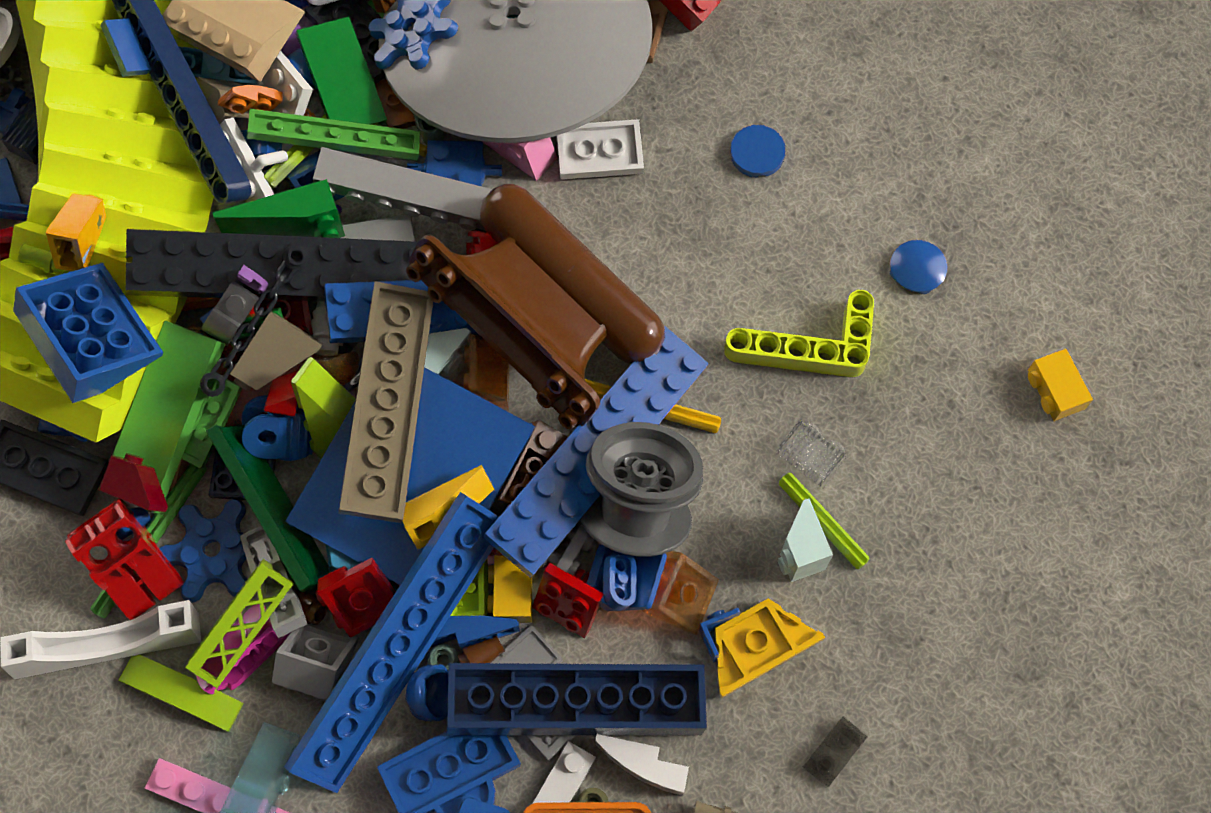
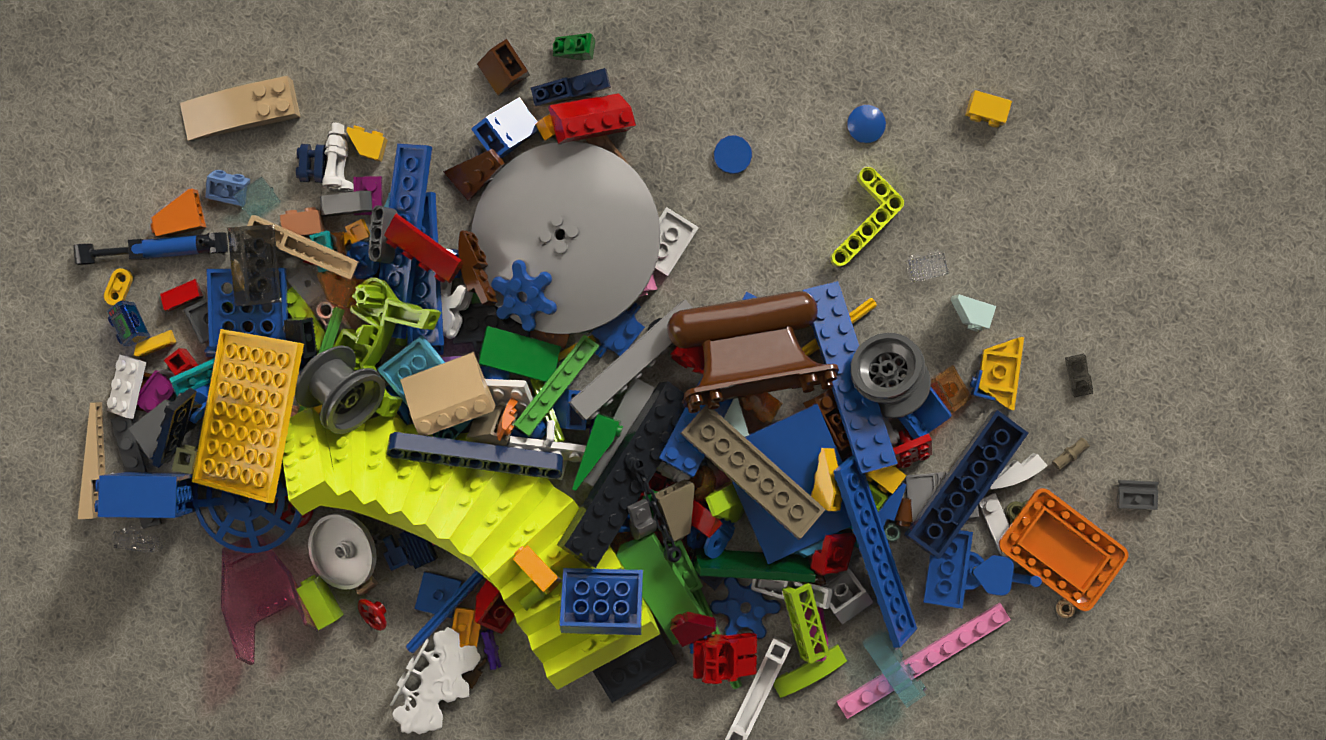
camera: 50 degrees left, 20 degrees up
(125, 47) = (430, 469): blue tile -> none
(252, 279) = (634, 497): medium lavender tile -> none
(428, 693) = (906, 552): blue hair -> none
(620, 585) = (925, 420): blue plate -> none
(829, 525) = (967, 288): lime axle -> none

